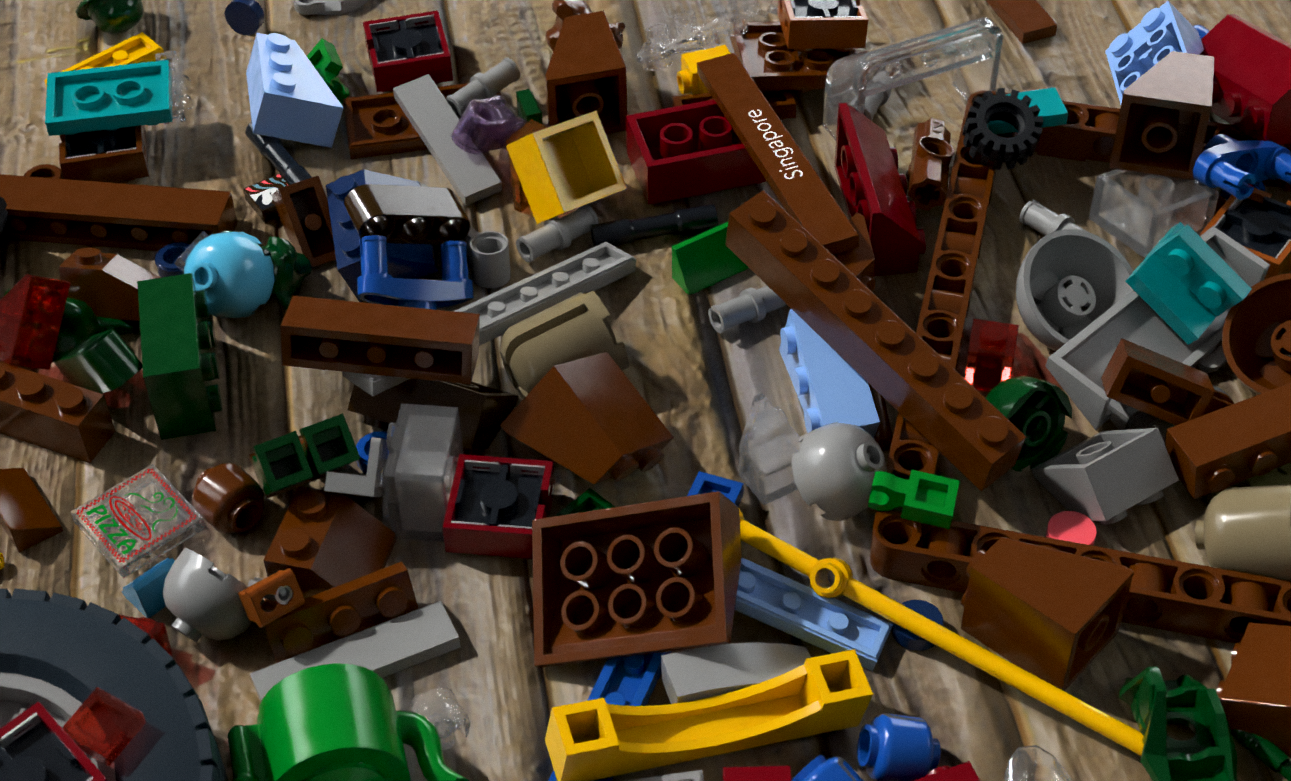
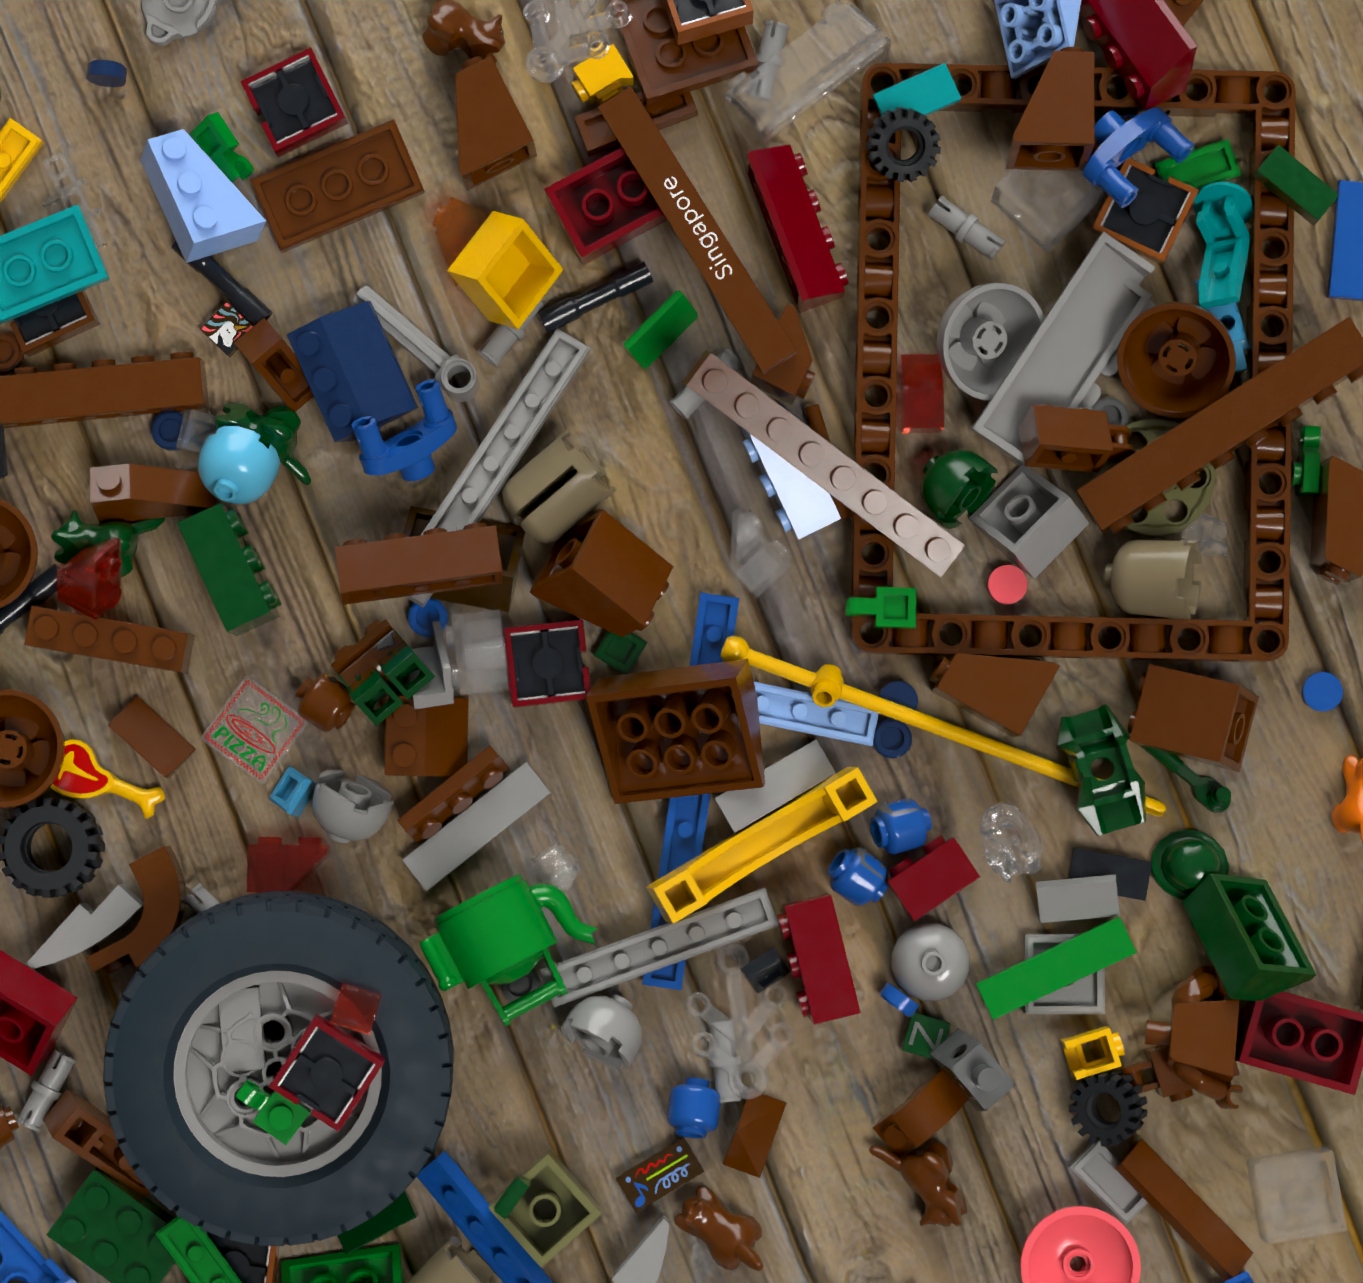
camera: 15 degrees left, 40 degrees up
(99, 362) = (171, 604): dark green beam -> none
(280, 595) = (403, 809): dark orange piece -> none
(407, 214) = (380, 373): dark brown beam -> none
(435, 122) = (372, 225): light grey tile -> none
(484, 85) = (388, 151): light grey pin -> none
(486, 125) = (413, 208): clear purple piece -> none
(528, 106) = (443, 175): dark green tile -> none
(837, 469) = (815, 578): light grey cylinder -> none
(903, 664) = (892, 739): none -> dark blue tile
(929, 164) = (837, 151): reddish brown piece -> none
(1187, 282) = (1084, 311): teal bracket -> none

